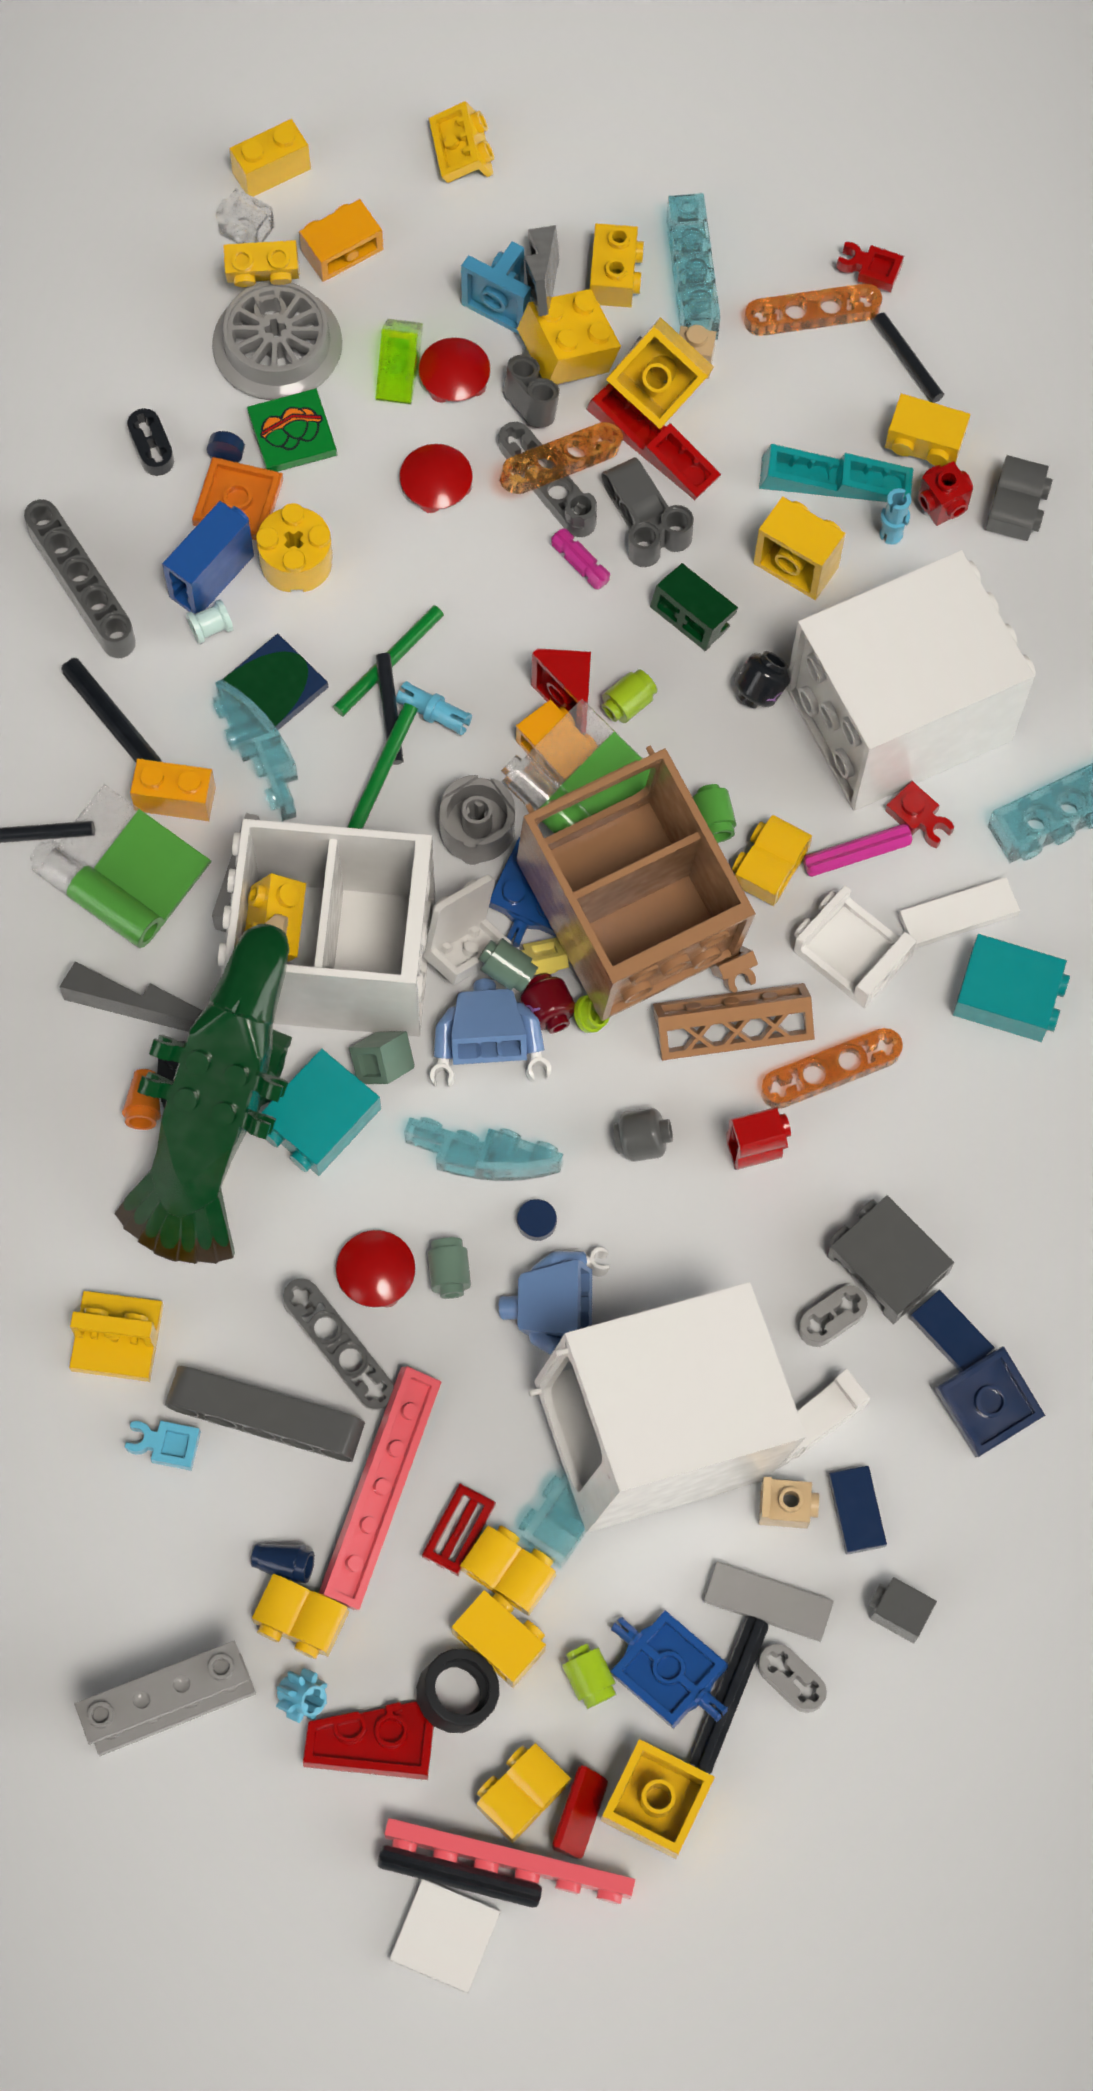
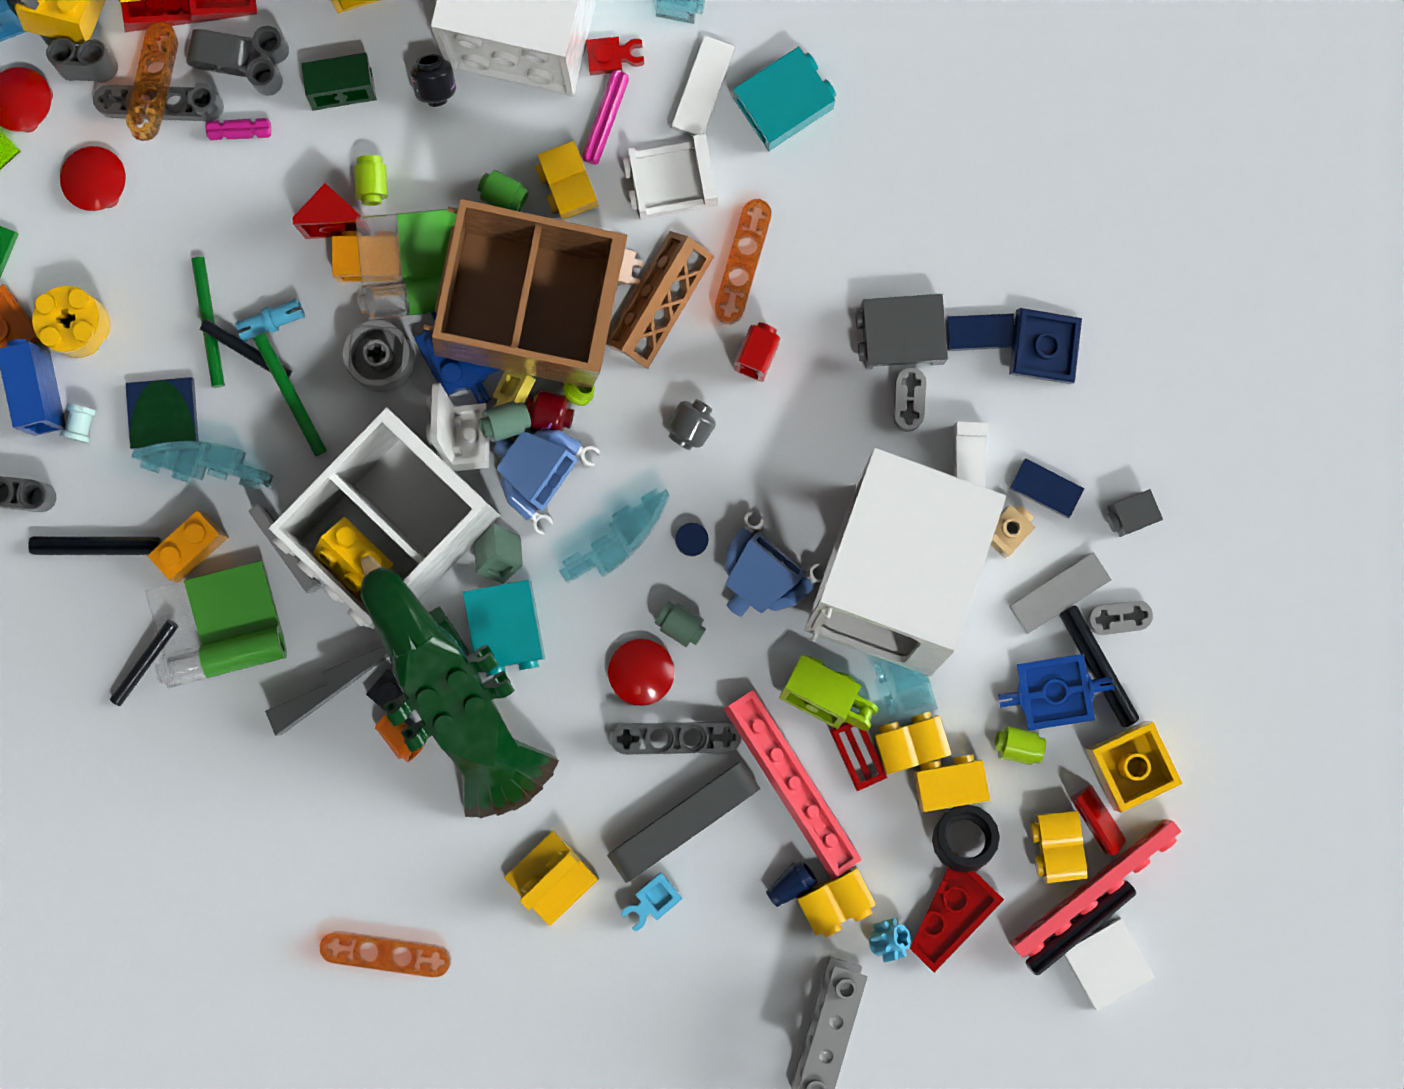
camera: 50 degrees left, 15 degrees up
(490, 1450) = (827, 694): none -> lime brick

